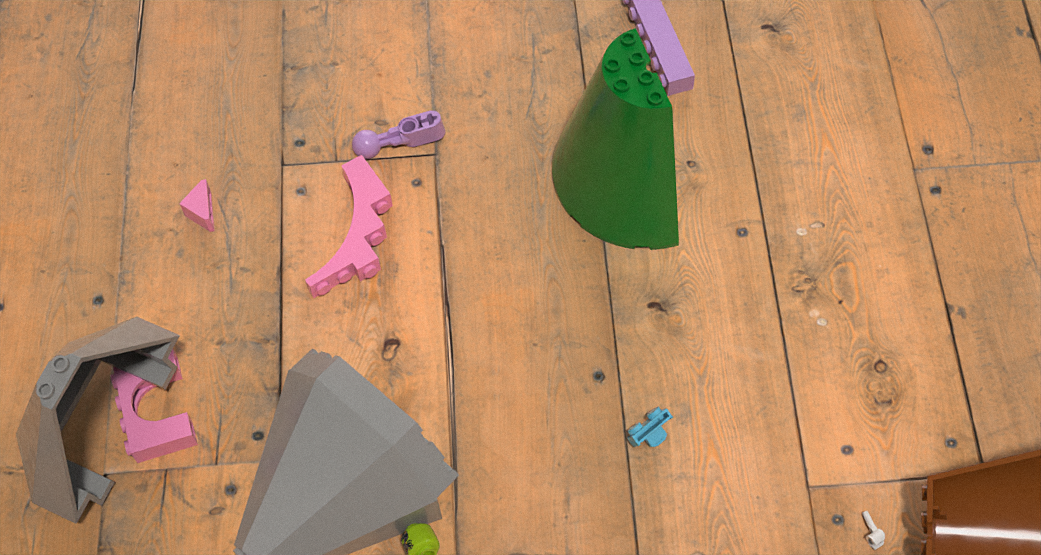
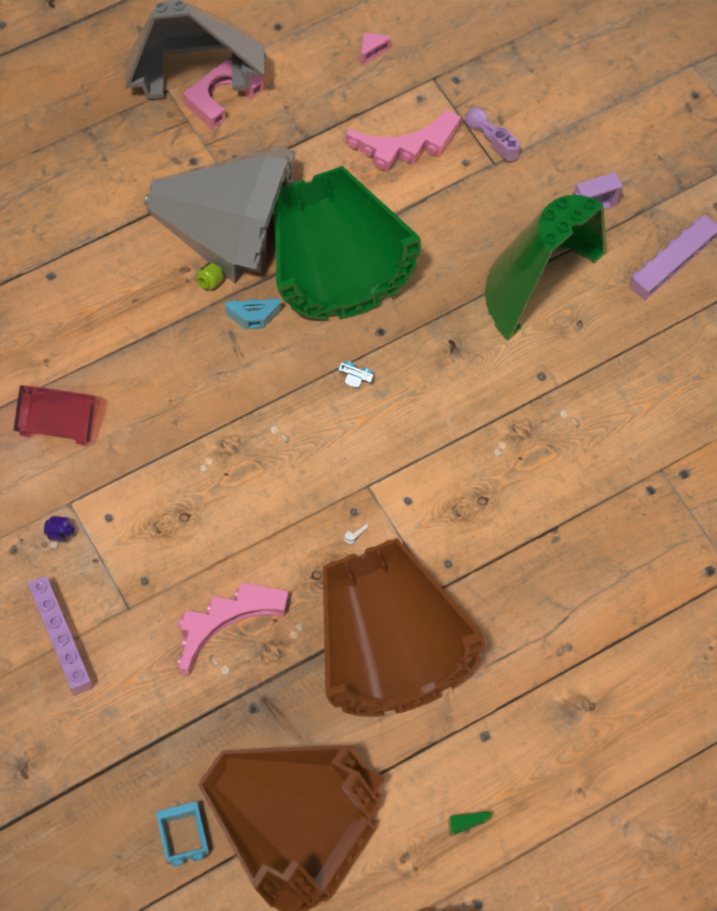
camera: 55 degrees right, 5 degrees up
(473, 355) = (339, 247): none -> green cone
(501, 513) = (253, 313): none -> medium azure slope
(544, 68) = (603, 189): none -> lavender window

